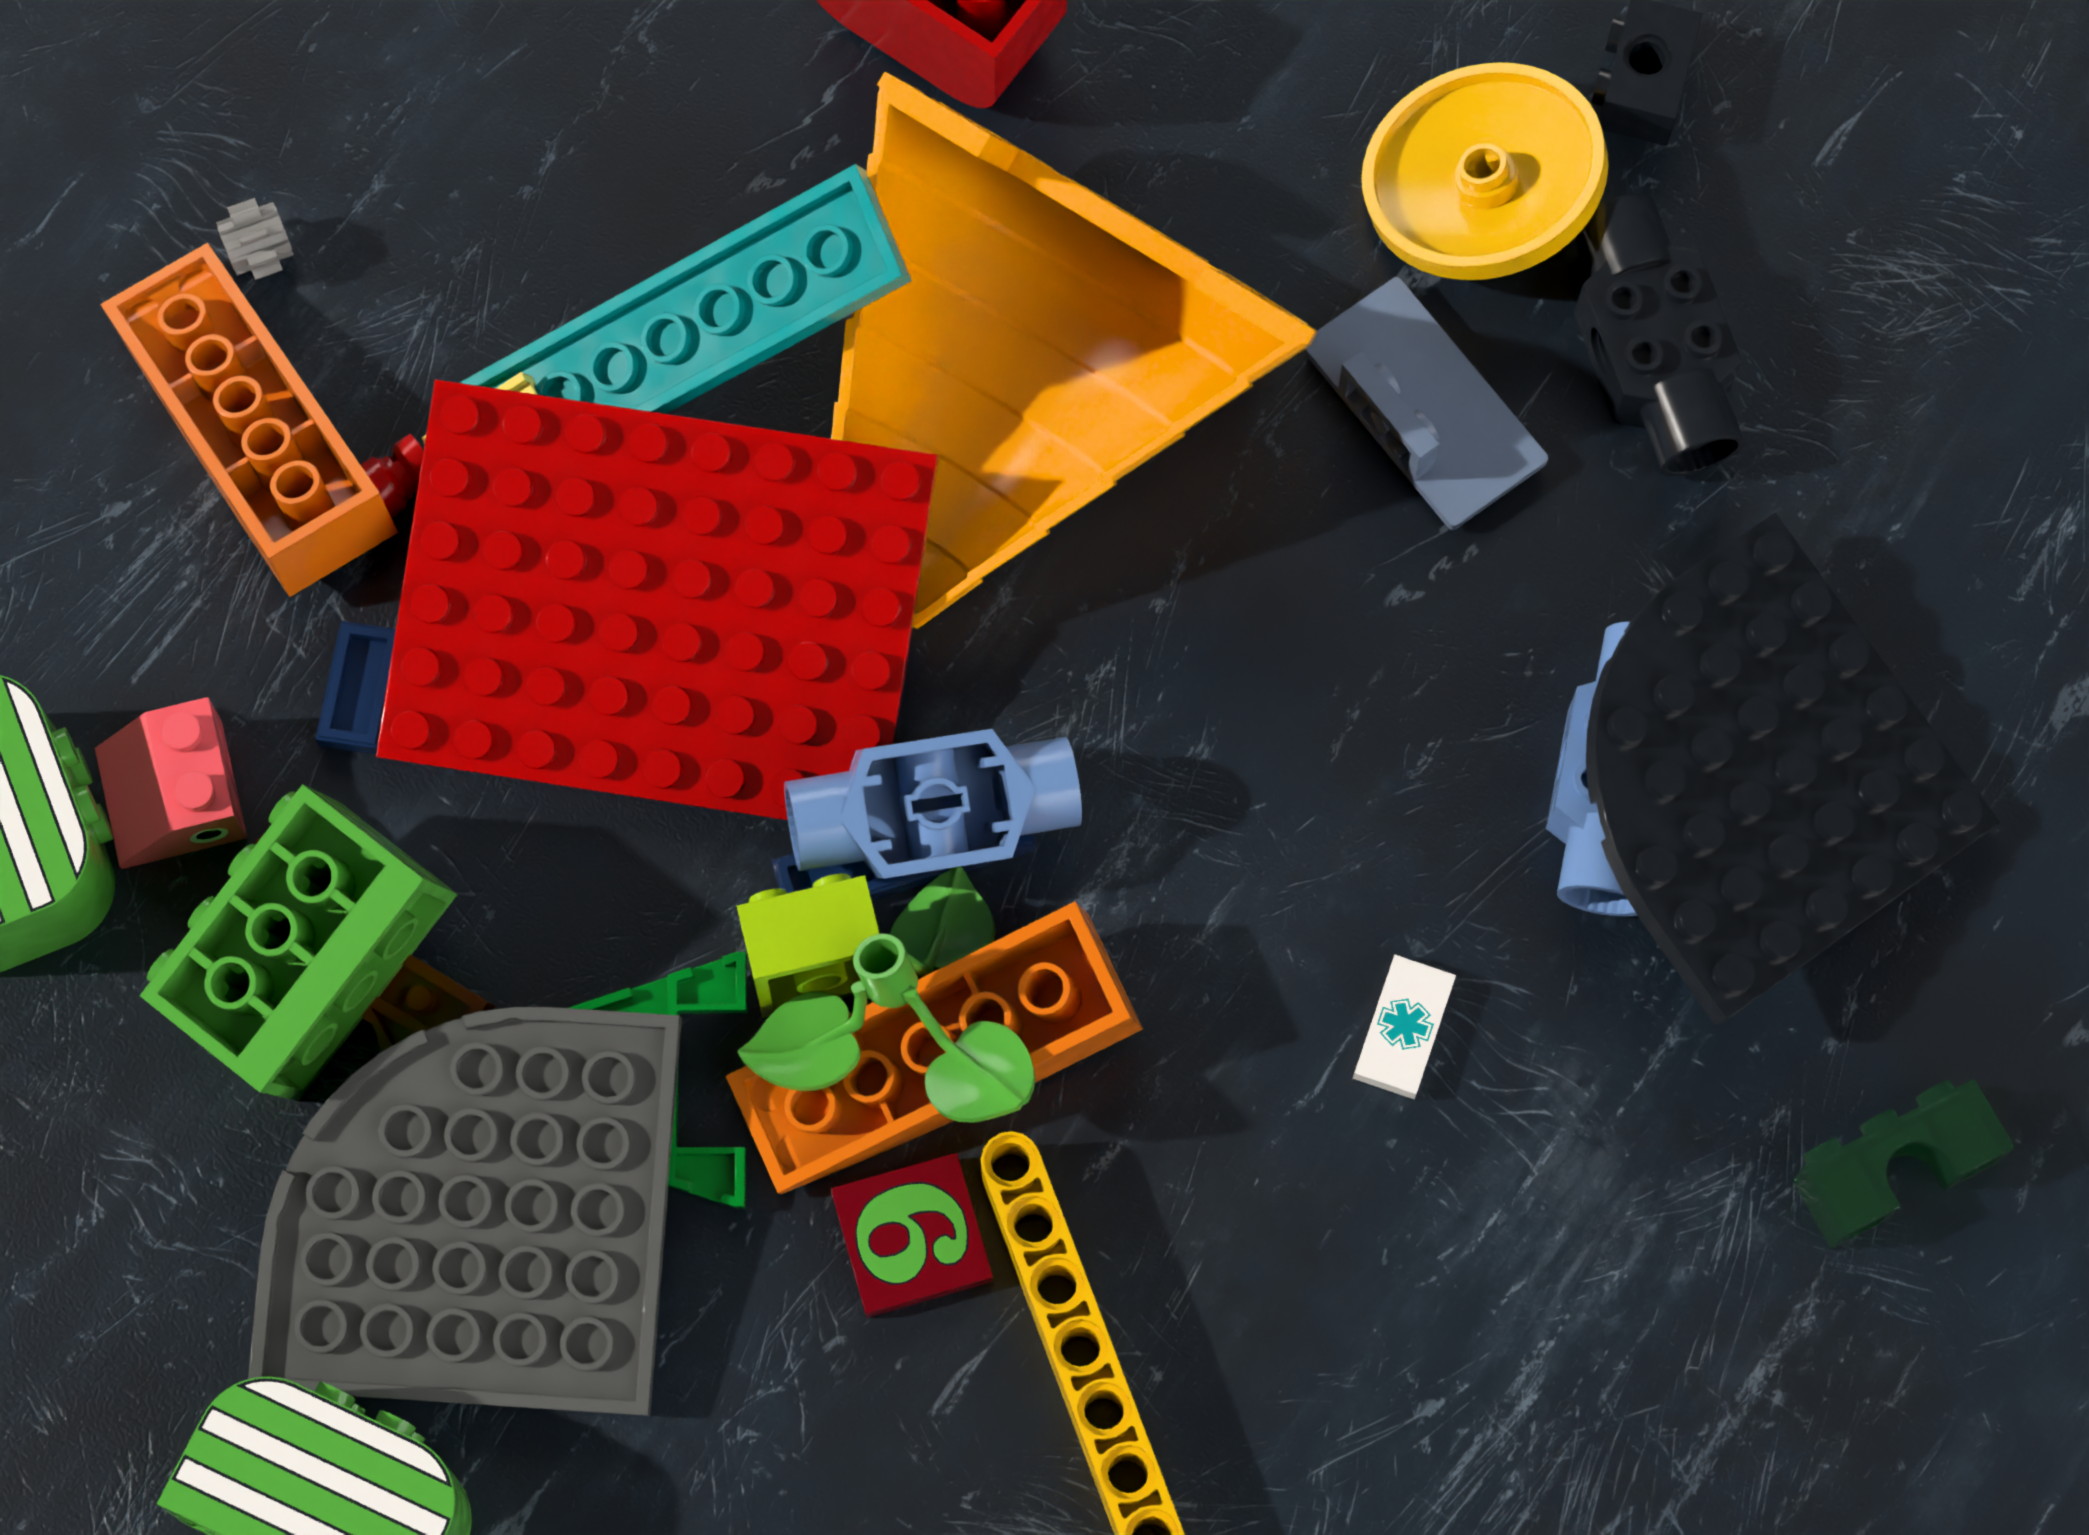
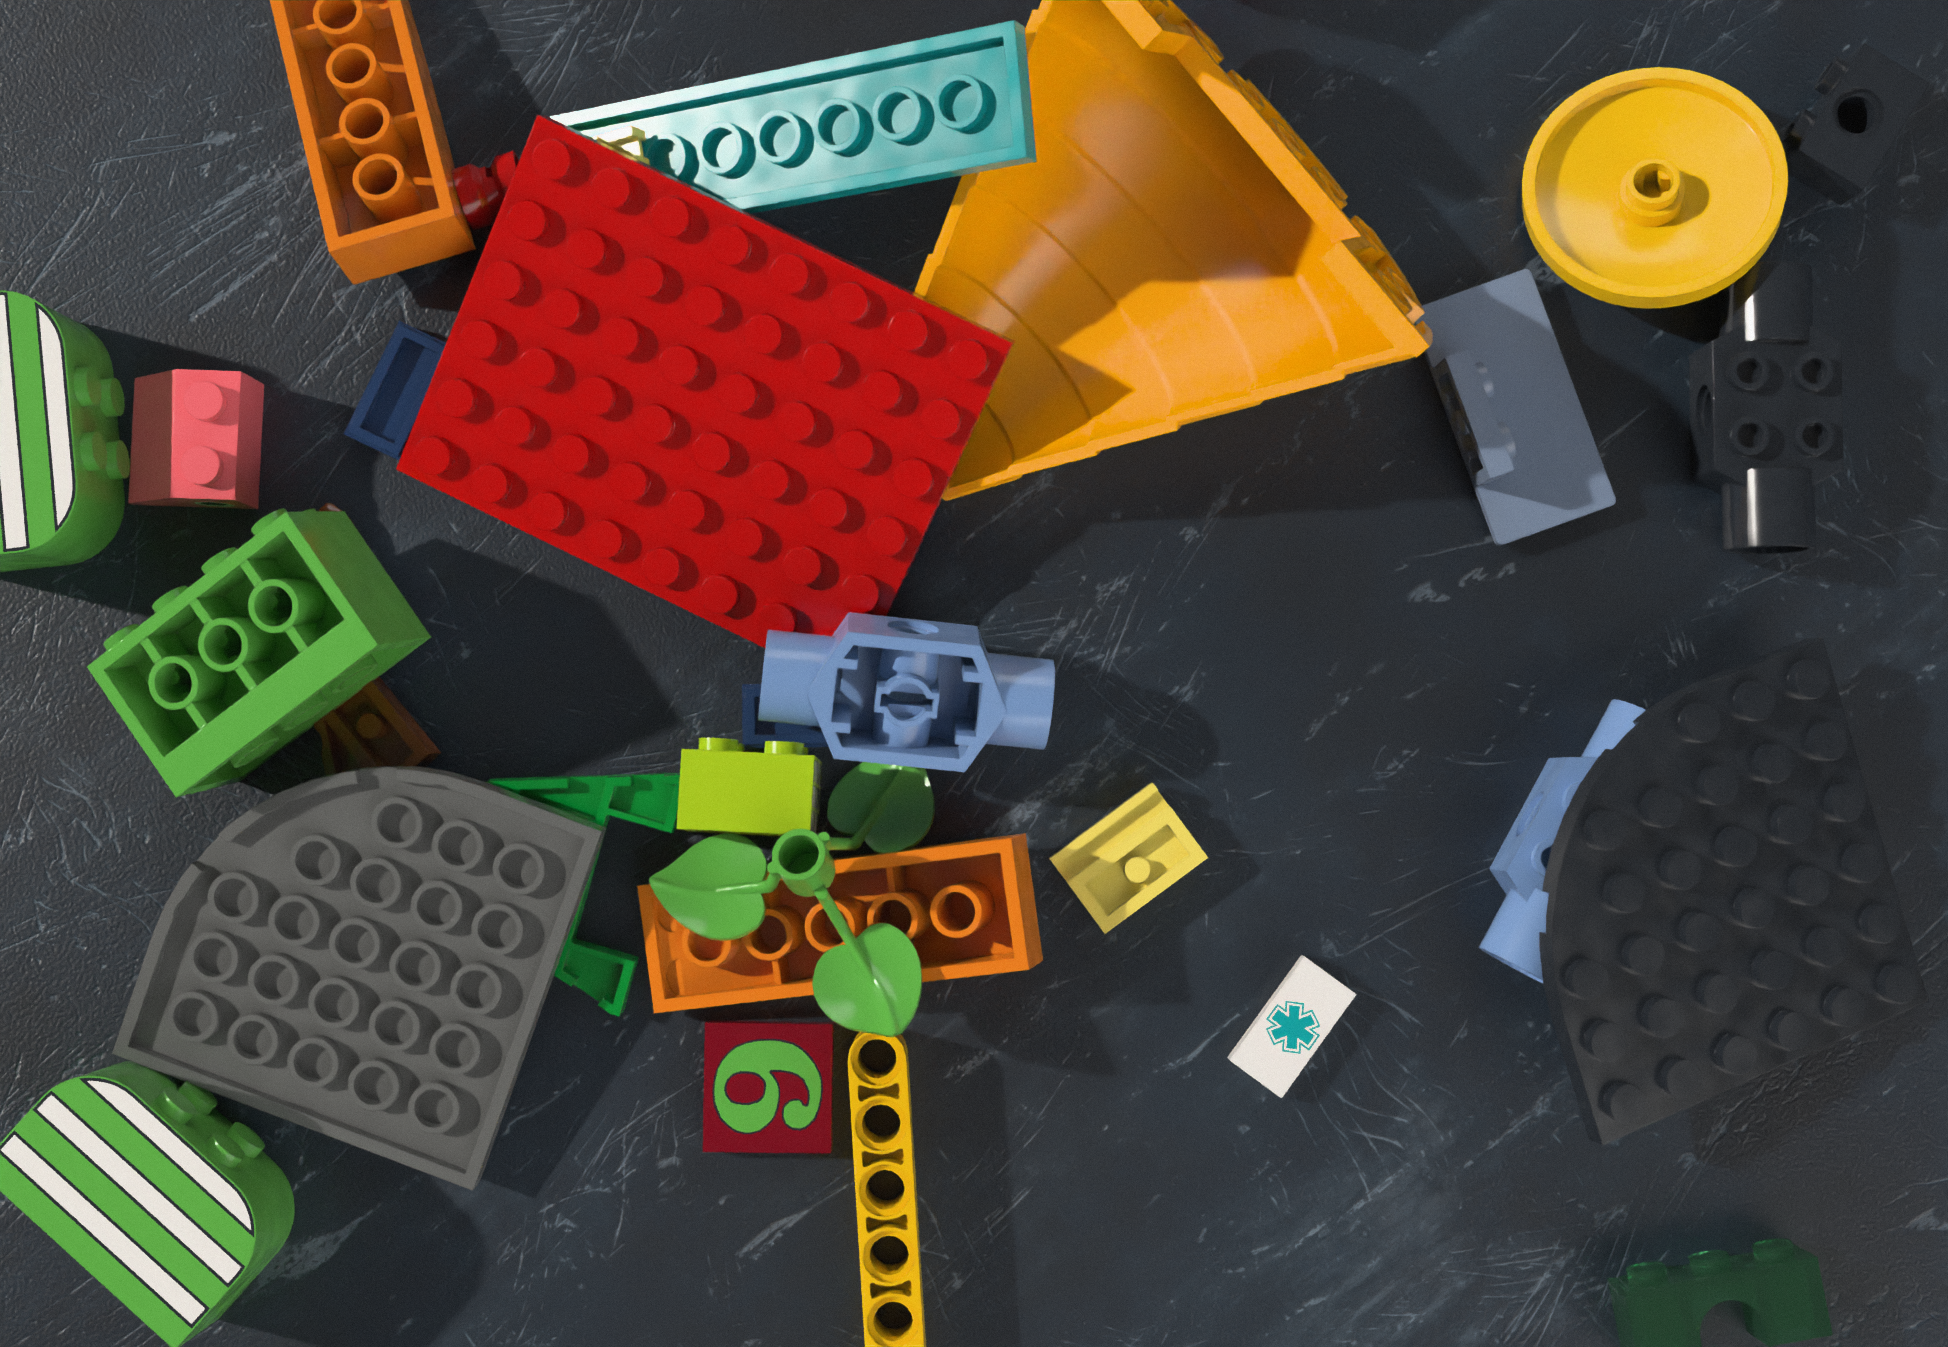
camera: 15 degrees right, 15 degrees up
(1194, 912) = (1128, 858): none -> light yellow plate

